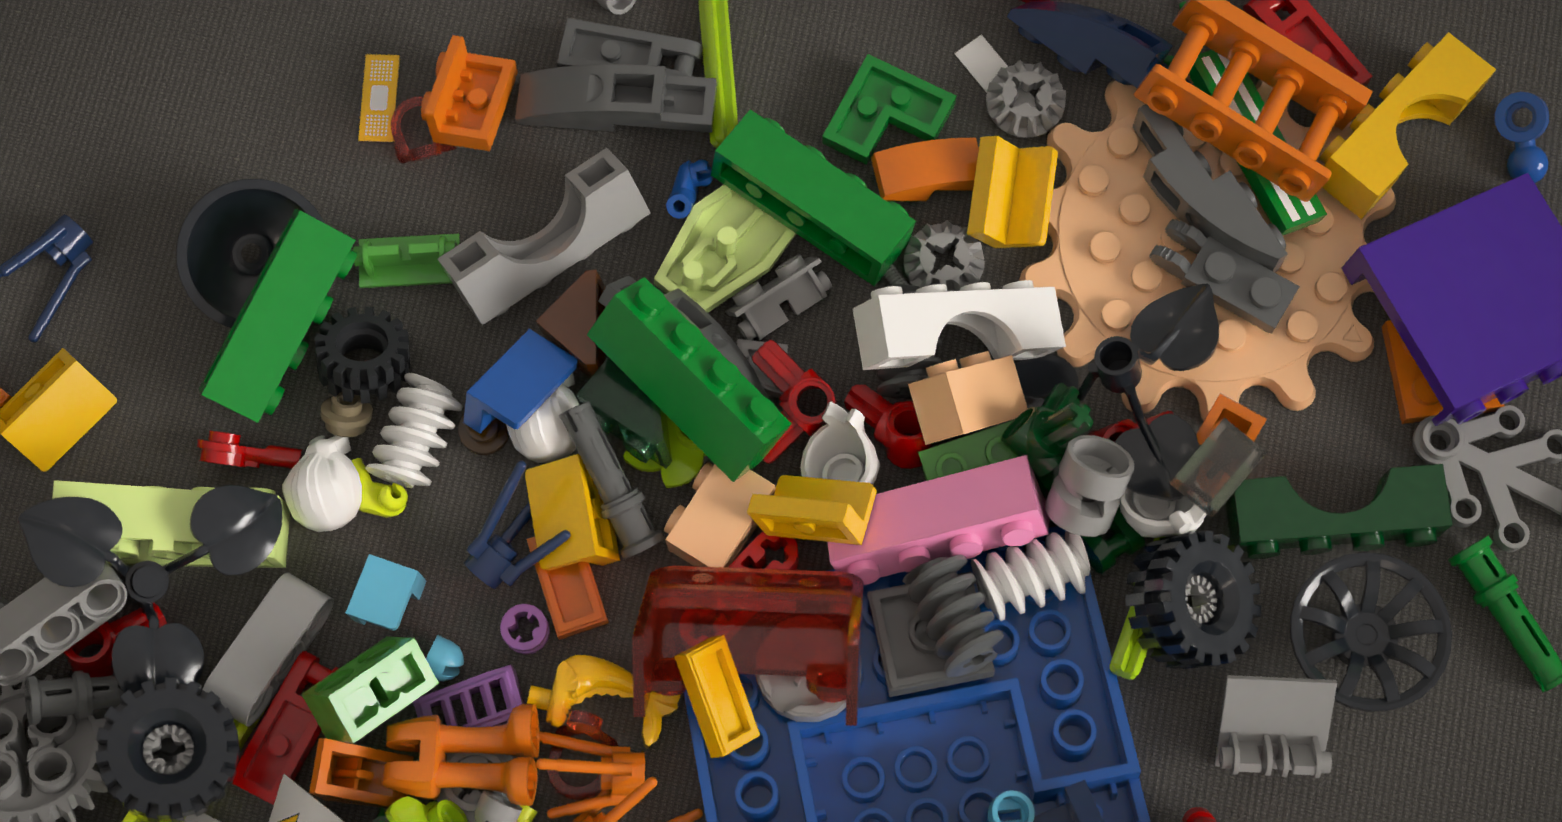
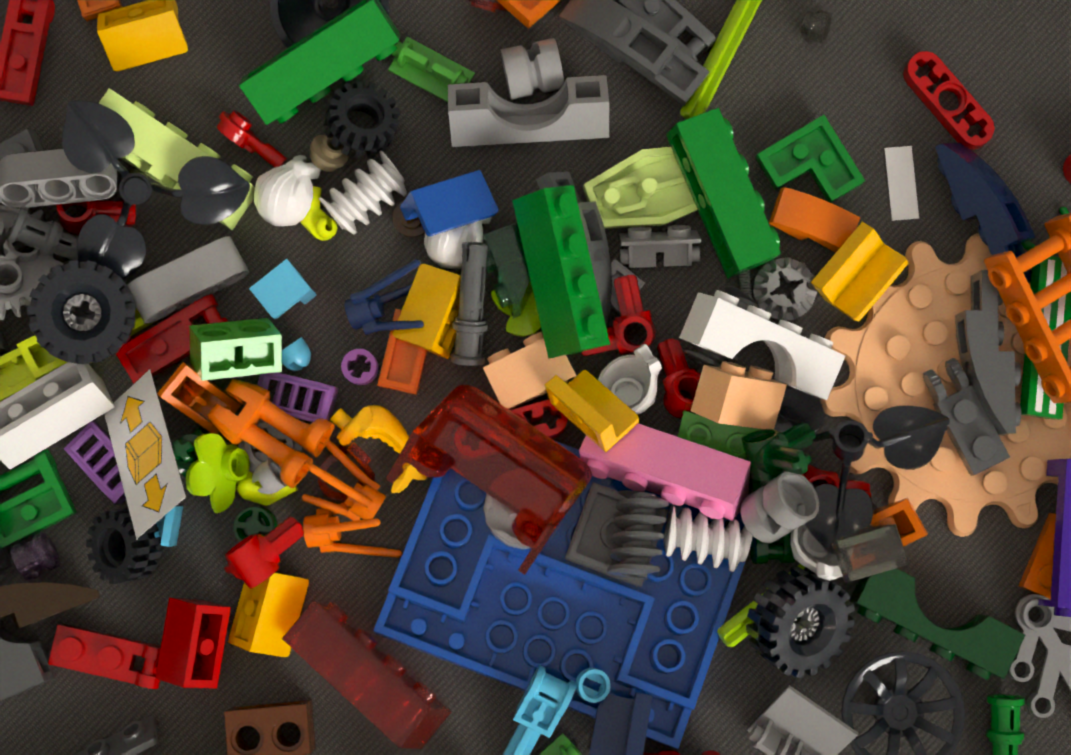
camera: 30 degrees right, 10 degrees up
(520, 190) = (532, 68): none -> light grey wheel
(571, 319) = (515, 180): reddish brown slope -> none
(686, 185) = (644, 133): blue arm -> none
(717, 696) = (451, 493): yellow tile -> none
(1024, 119) = (900, 224): light grey gear -> none

